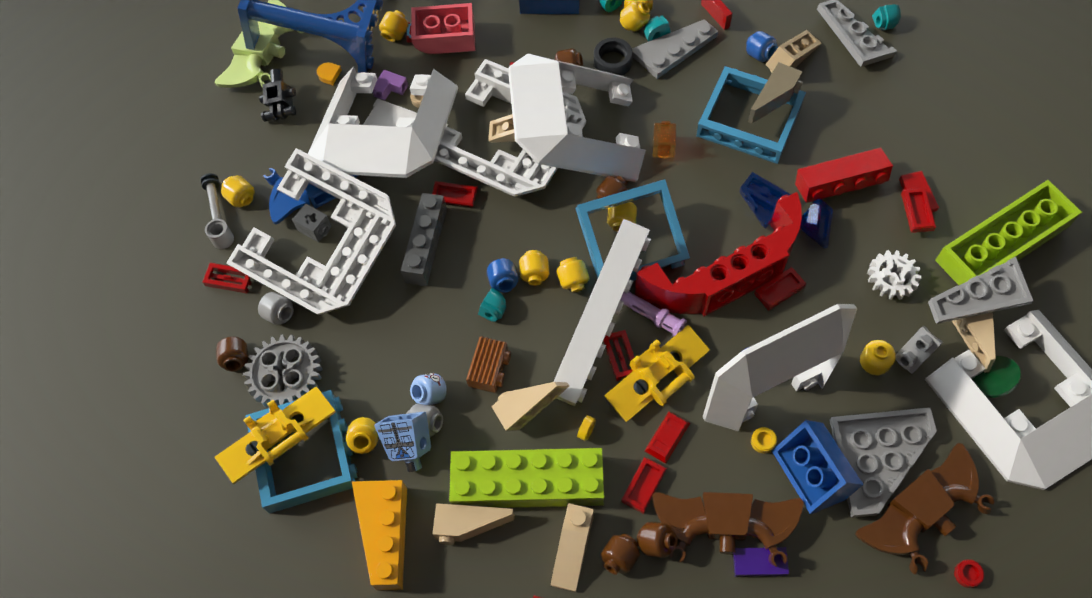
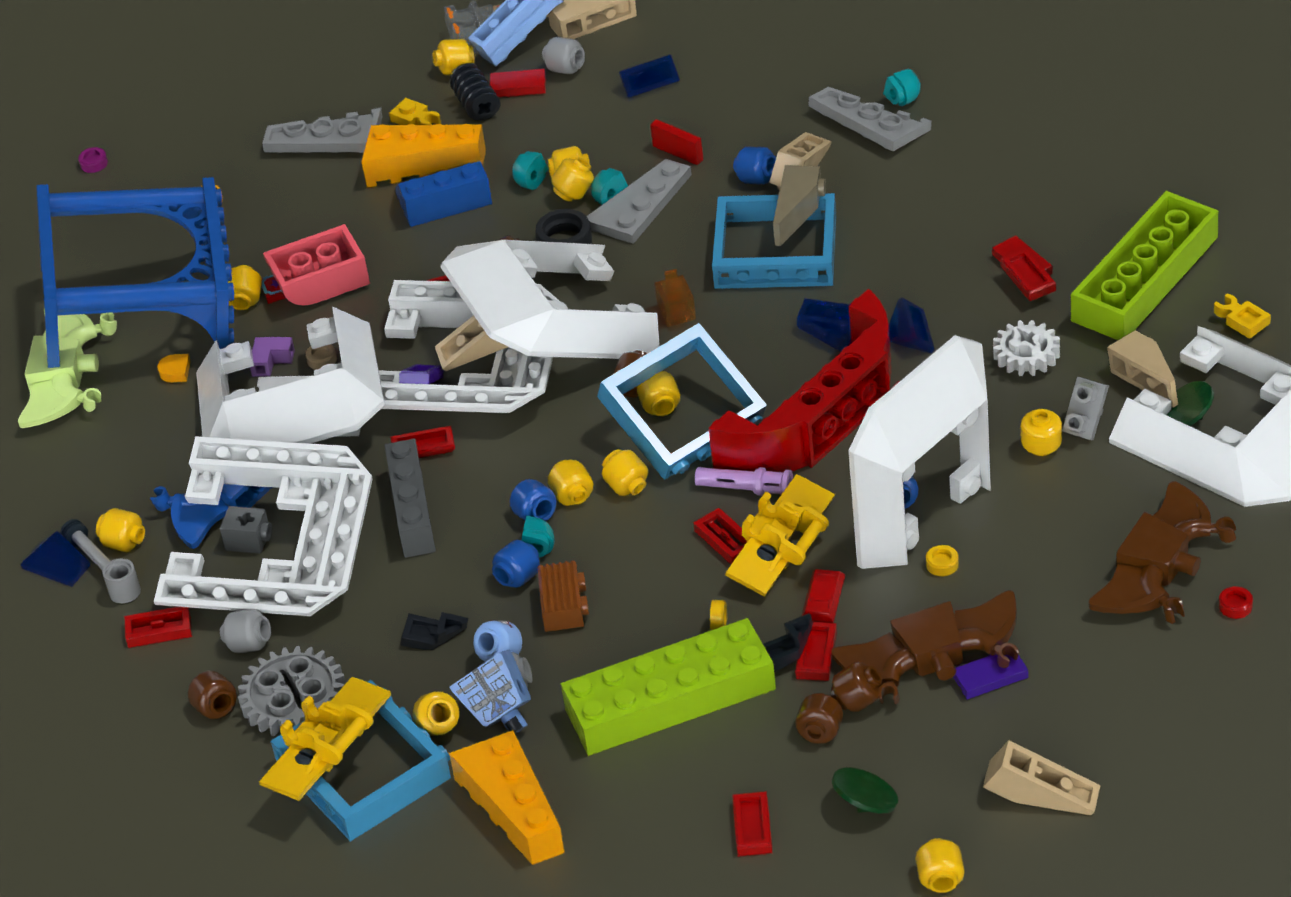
camera: 20 degrees left, 20 degrees down
(191, 200) = (56, 560): none -> clear blue slope
(277, 97) = (121, 411): black piece -> none
(392, 355) = (431, 633): none -> black slope
(463, 522) = (613, 753): tan slope -> none
(469, 324) = (515, 564): none -> blue head
(472, 140) = (421, 374): none -> dark purple tile
(522, 405) = (631, 607): tan slope -> none
(572, 547) = (757, 731): tan slope -> none
(600, 309) = (679, 491): white brick -> none
(623, 477) = (789, 647): none -> black slope
(816, 466) = (1013, 555): blue slope -> none
(843, 175) = (921, 265): red brick -> none
(881, 452) = (1083, 524): light grey plate -> none
(989, 292) = (1140, 320): light grey wing -> none
(1065, 309) = (1243, 318): none -> yellow plate

